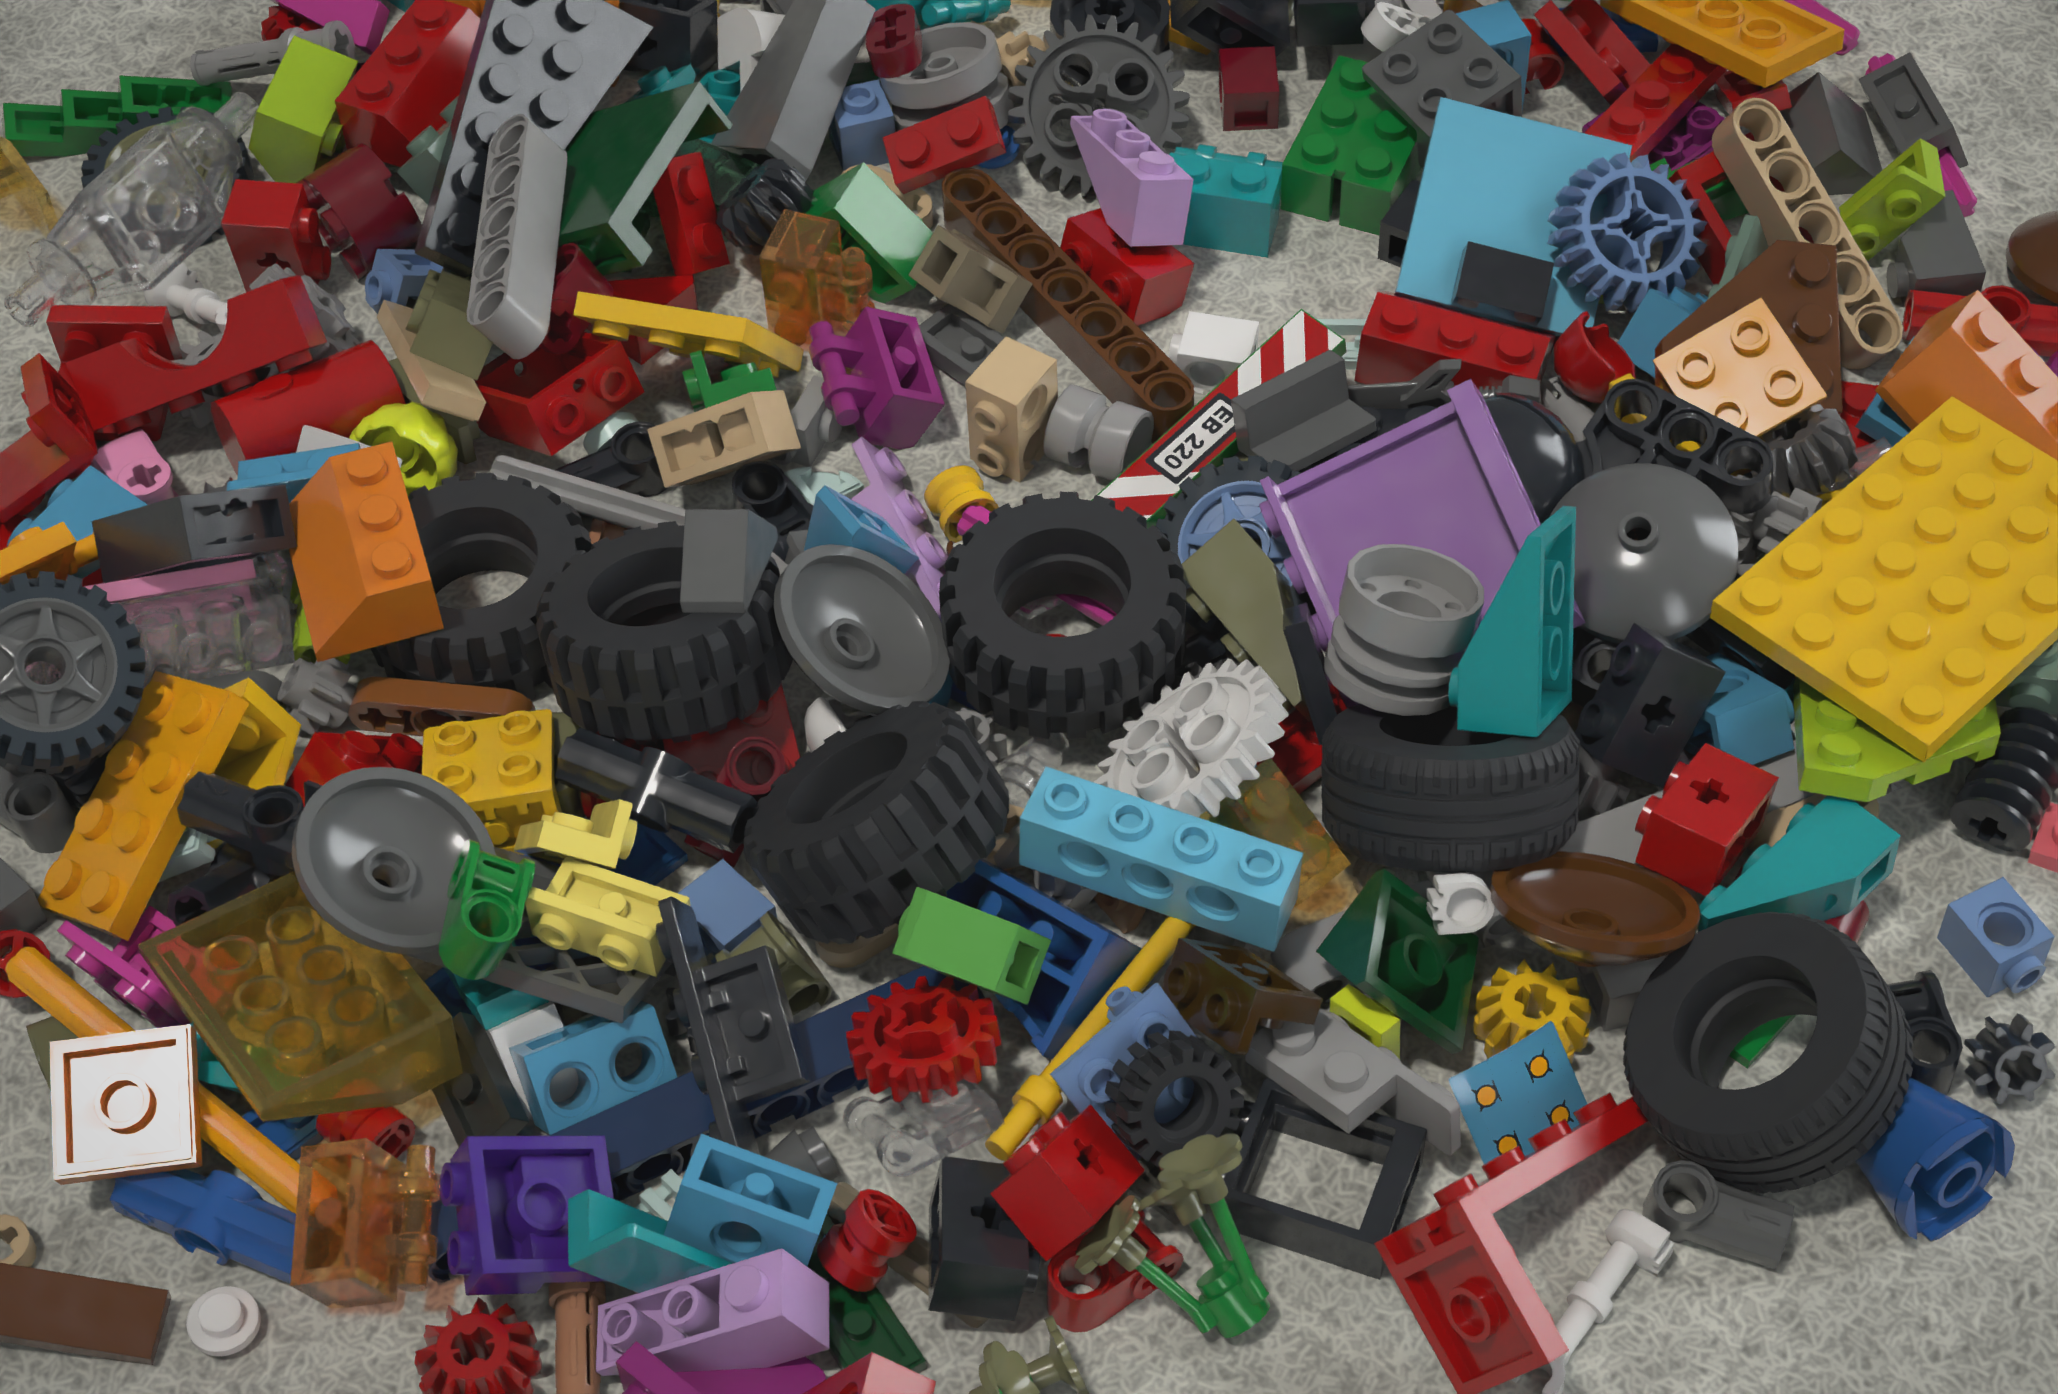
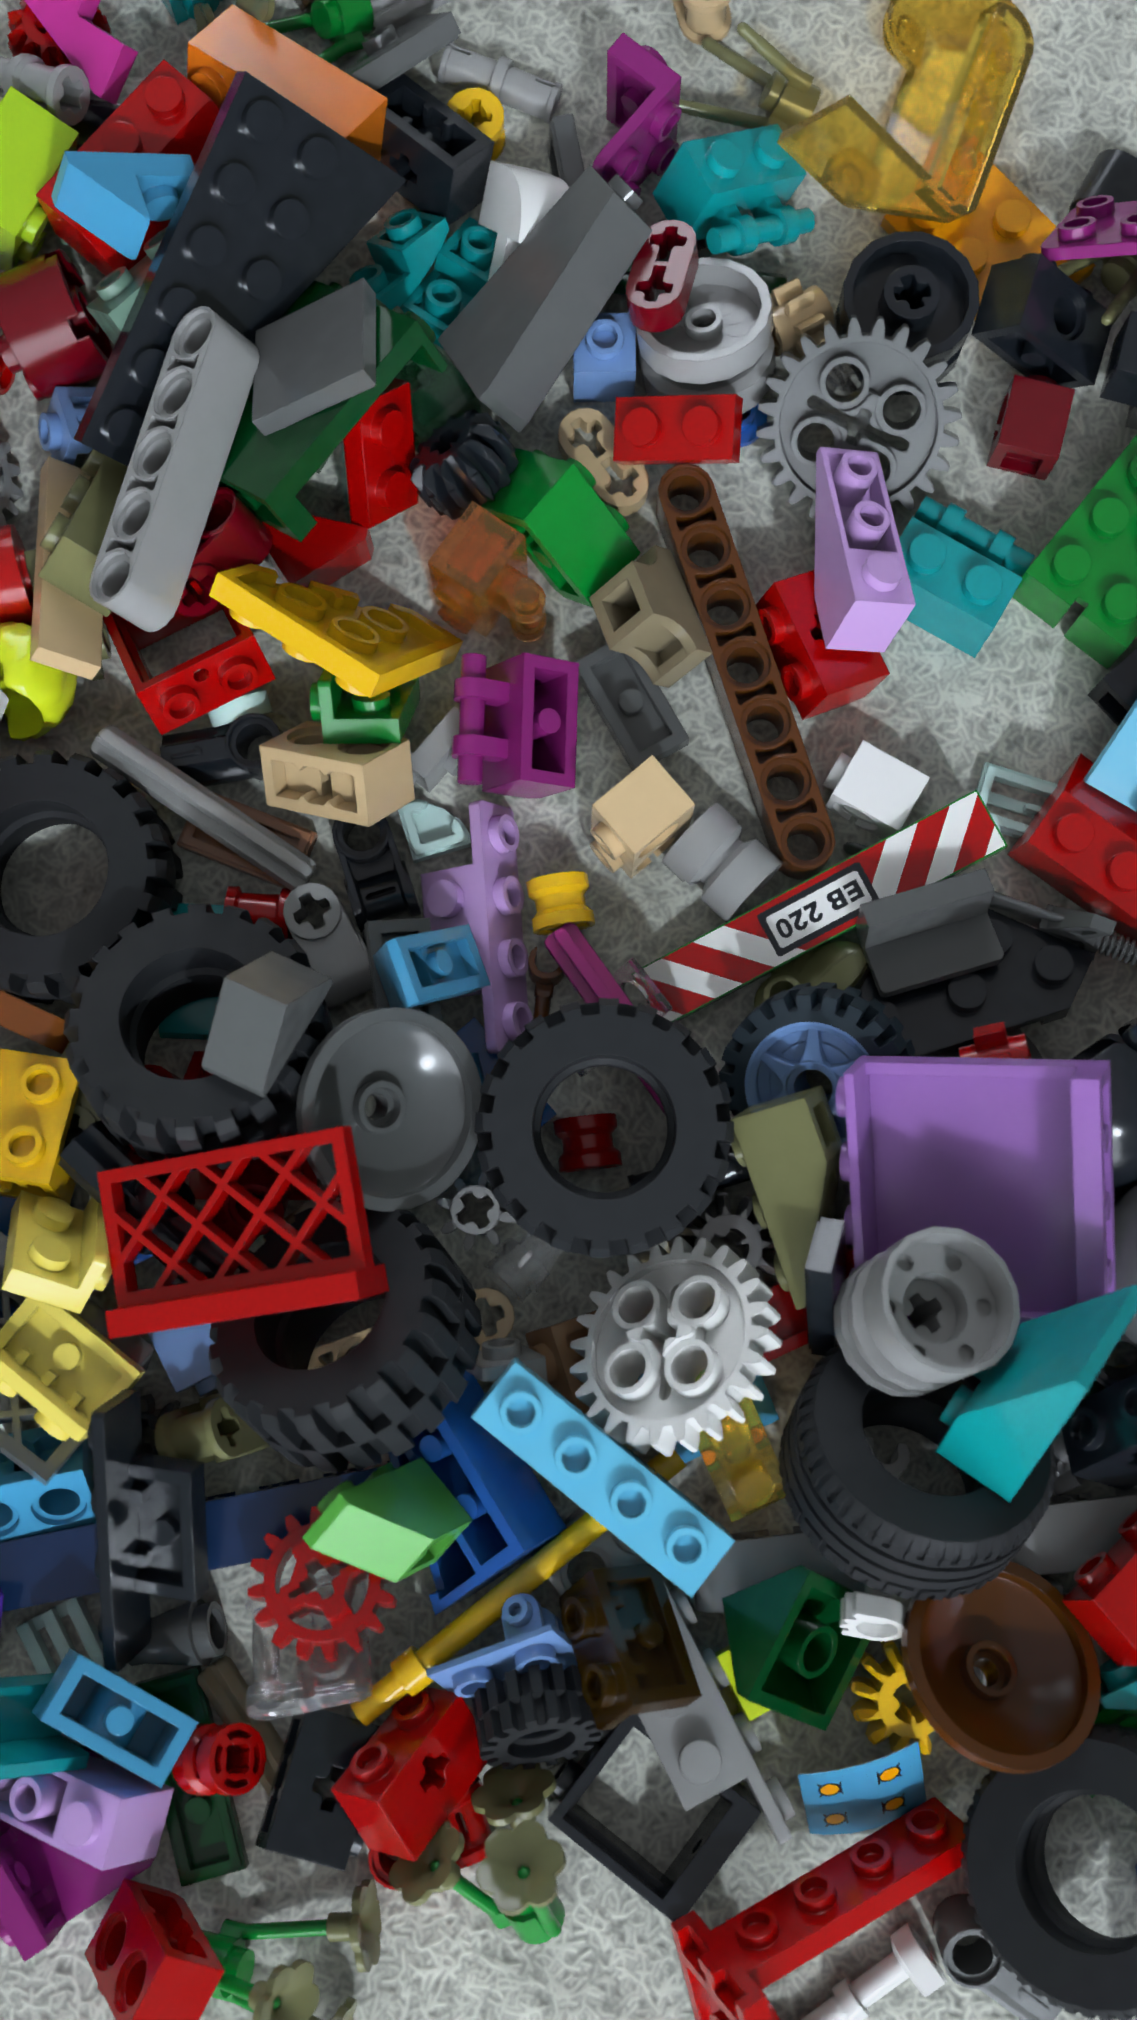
camera: 15 degrees right, 30 degrees up
(414, 70) = (120, 193): none -> dark azure slope
(618, 134) = (315, 357): none -> dark grey tile
(765, 786) = (248, 1293): none -> red fence

